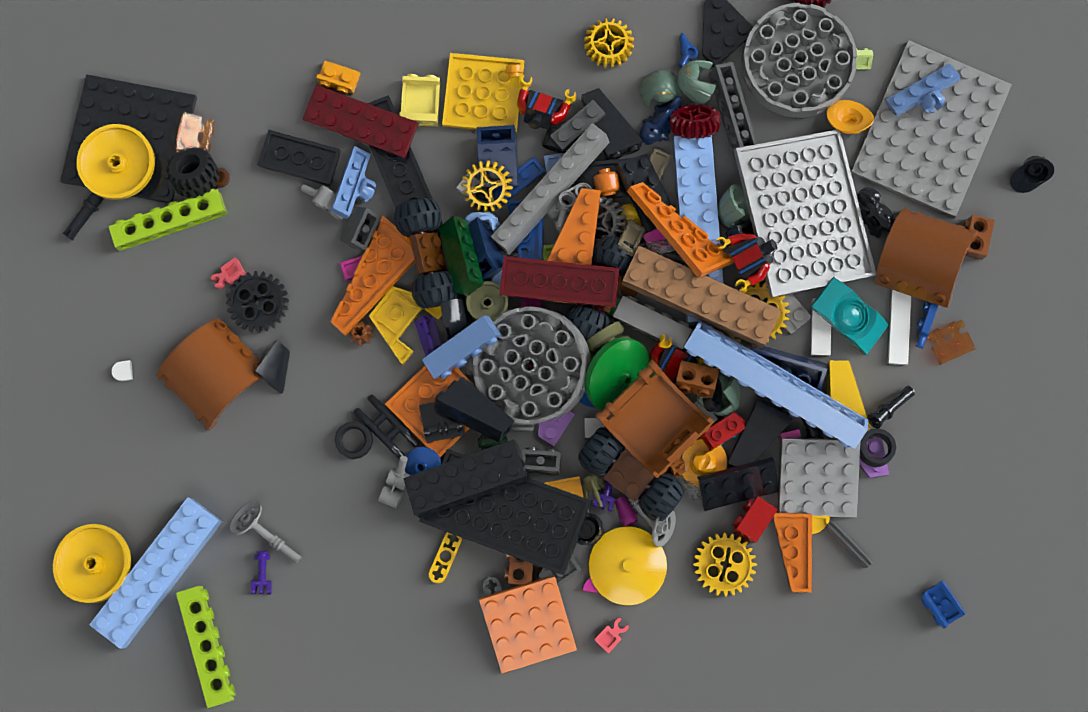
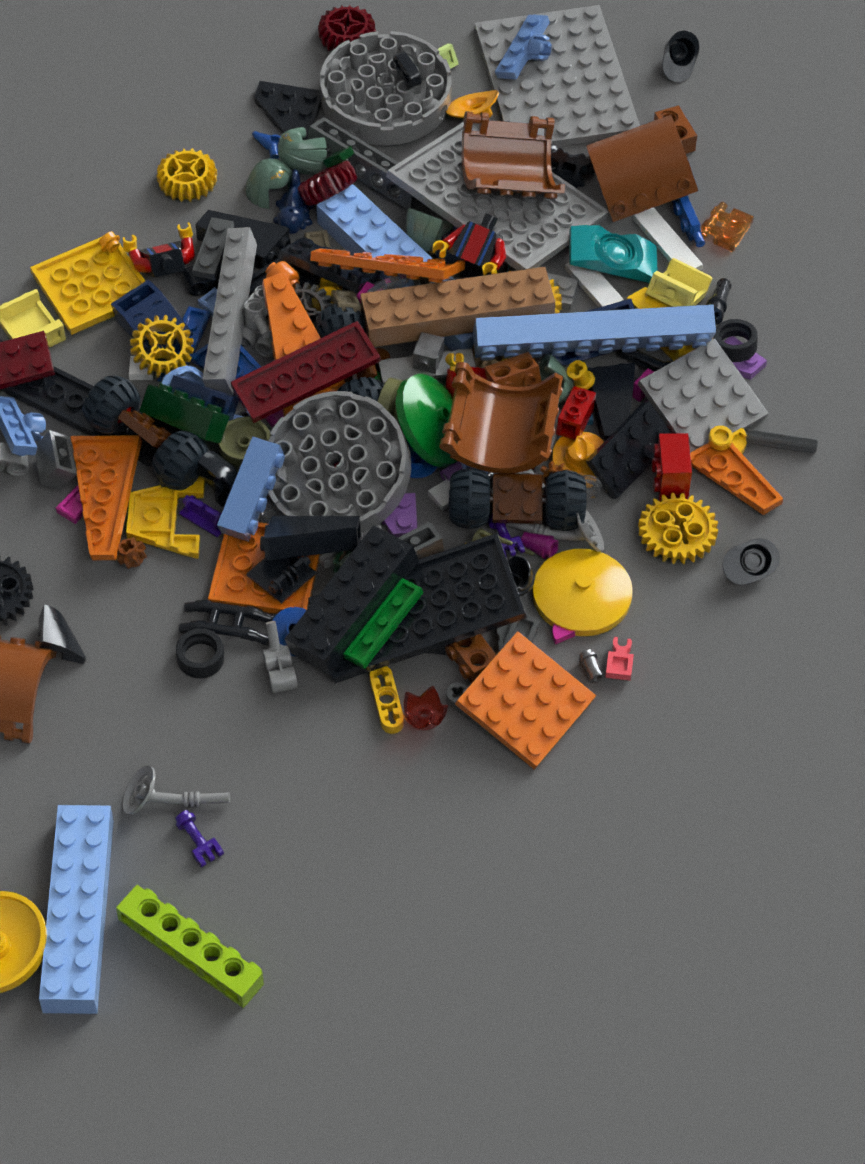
camera: 35 degrees left, 25 degrees down
(449, 586) = (427, 703): none -> clear red piece
(475, 509) = (383, 623): none -> green tile
(590, 626) = (589, 661): none -> flat silver pin
(656, 317) = (428, 352): none -> flat silver brick
(716, 106) = (338, 157): none -> dark green tile
(746, 411) = (582, 377): none -> yellow bush
(749, 627) = (751, 561): none -> black piece
(805, 517) = (720, 438): none -> yellow tile
(818, 62) = (407, 69): none -> black beam
(828, 196) = (508, 157): none -> dark orange hinge
(873, 376) = (679, 285): none -> light yellow panel

